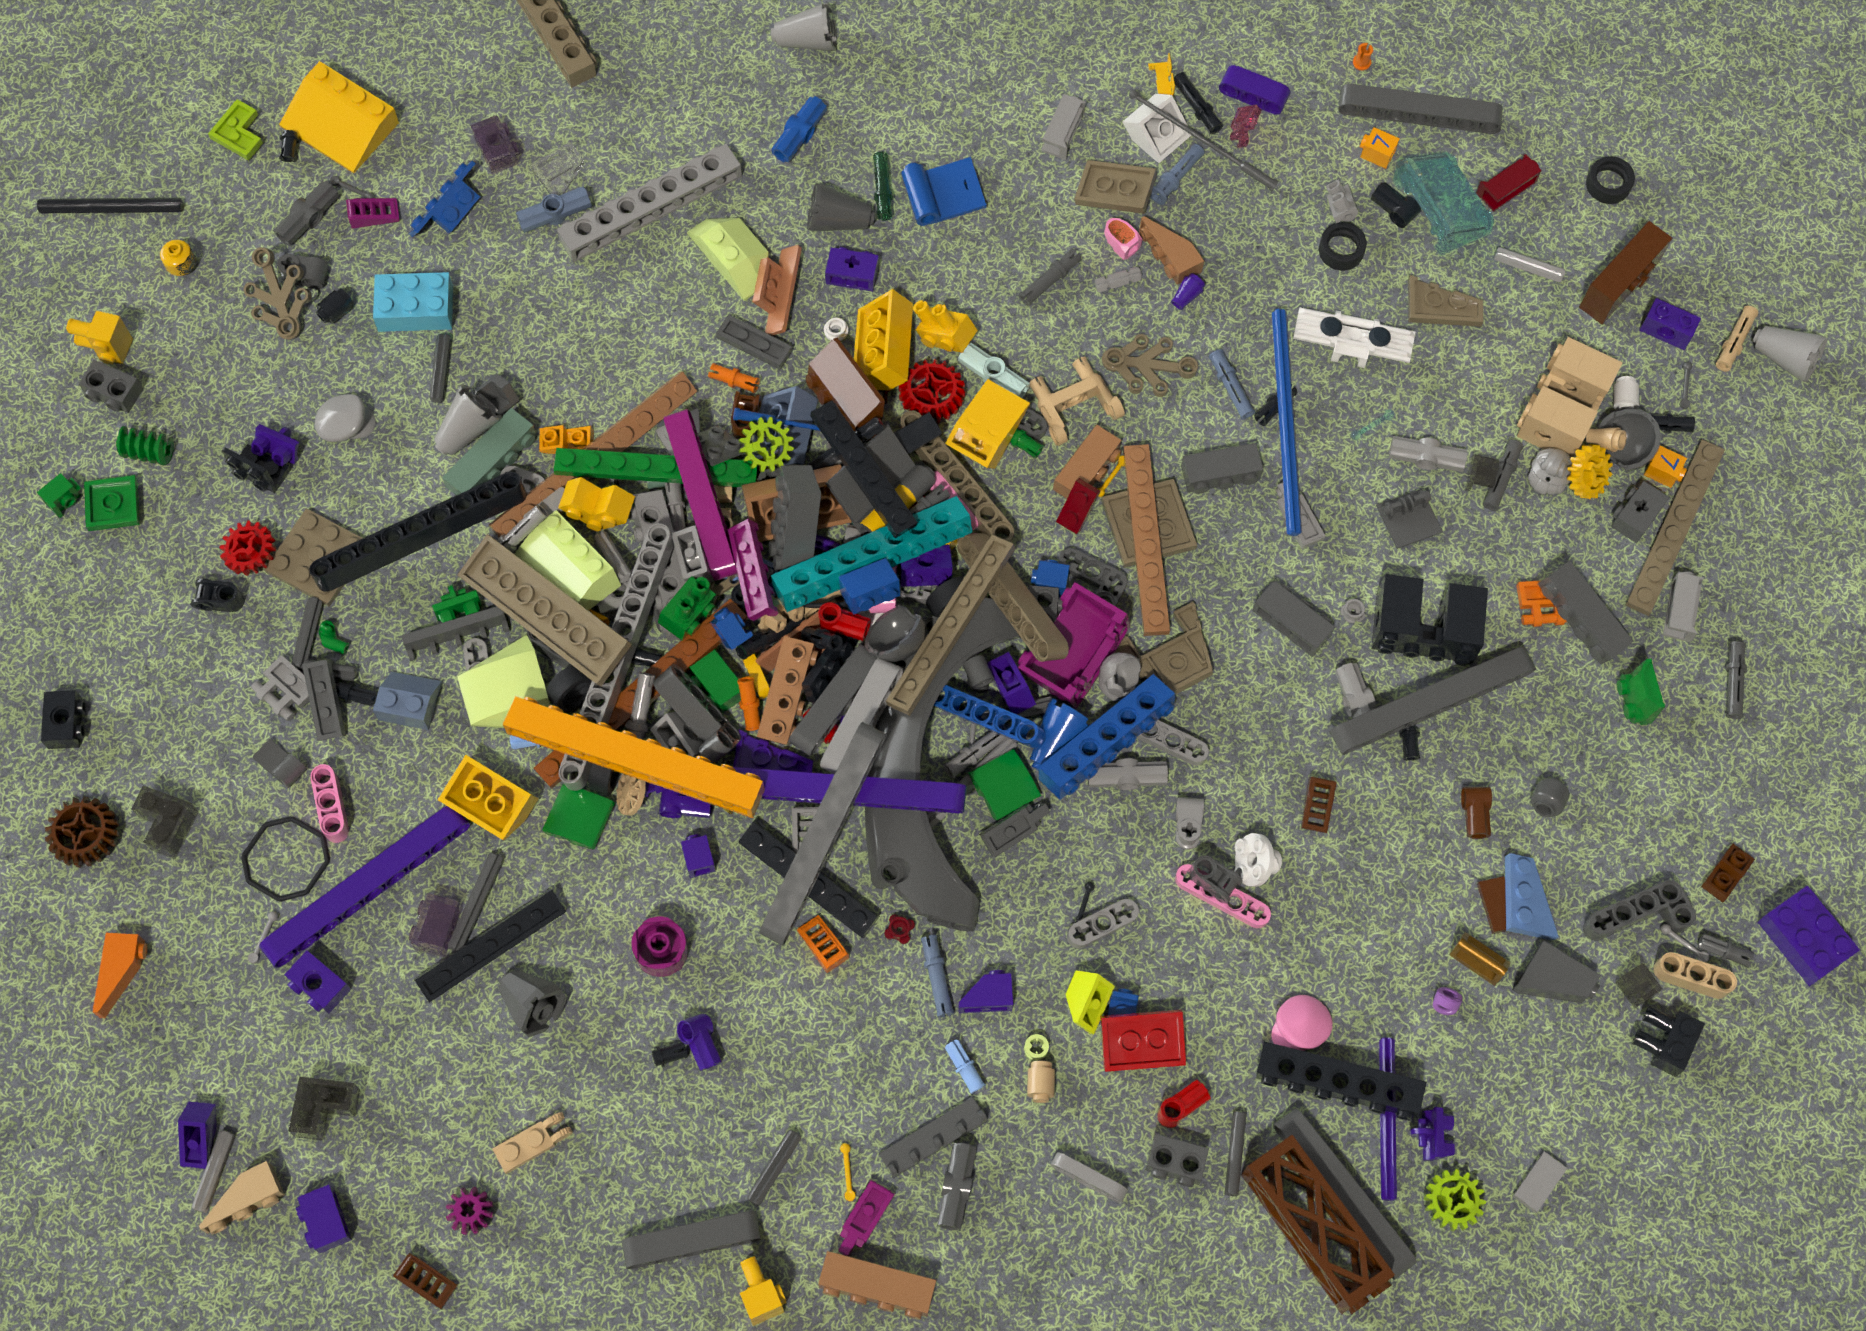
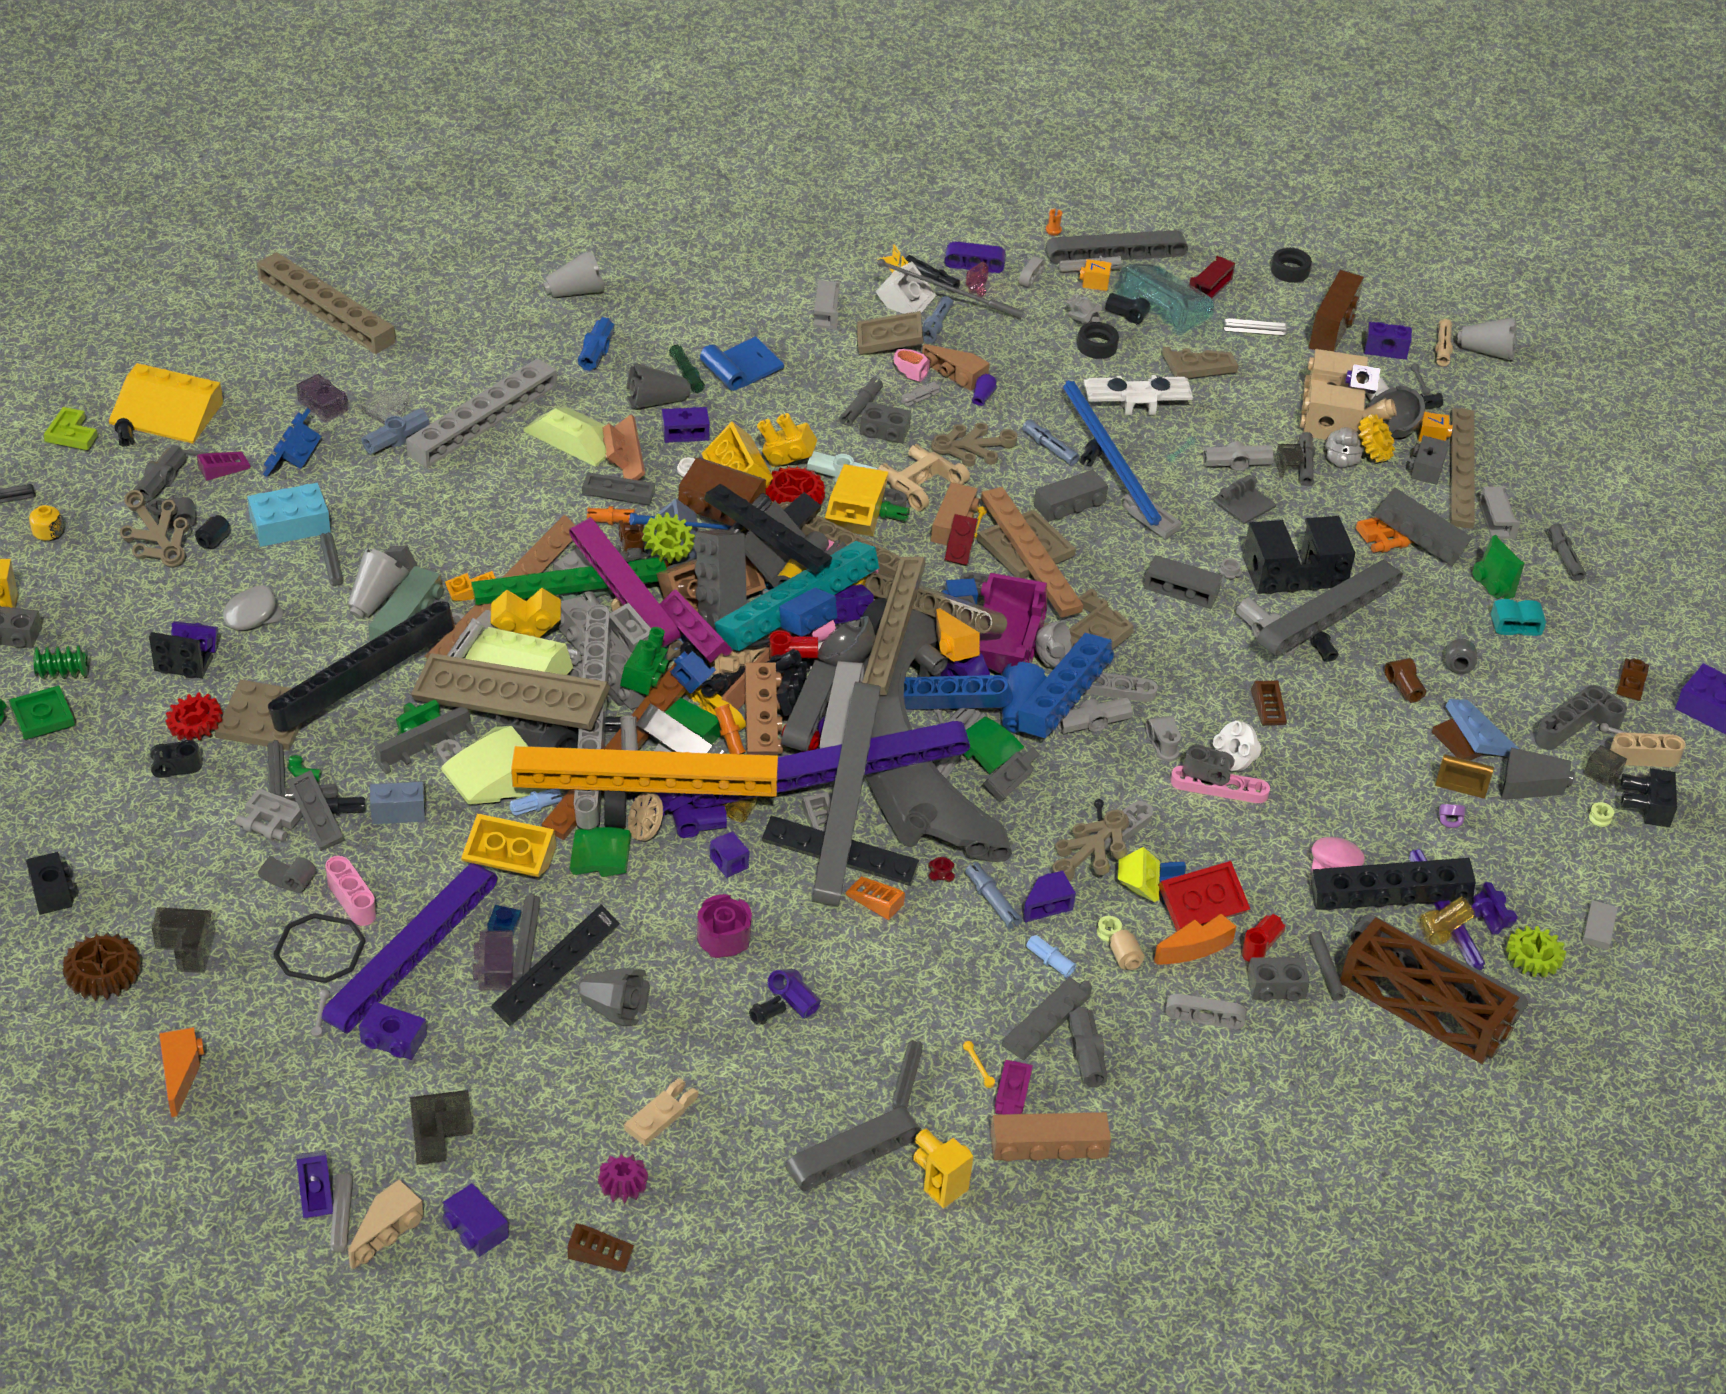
camera: 20 degrees left, 25 degrees down
(462, 874) = (504, 919): none -> clear blue plate
(1006, 662) = (956, 638): none -> light orange slope
(1057, 944) = (1113, 823): none -> dark tan plant
(1067, 312) = (885, 422): none -> dark grey brick
(1114, 1091) = (1196, 941): none -> orange slope
(1309, 126) = (1031, 271): none -> light grey beam
(1365, 126) = (1075, 265): none -> light grey axle
(1372, 1140) = (1441, 923): none -> clear yellow piece
(1601, 1037) = (1598, 819): none -> yellowish green bush
(1604, 408) = (1371, 373): none -> brick
(1638, 759) = (1518, 617): none -> teal brick
(1725, 949) = (1661, 727): dark grey axle -> none

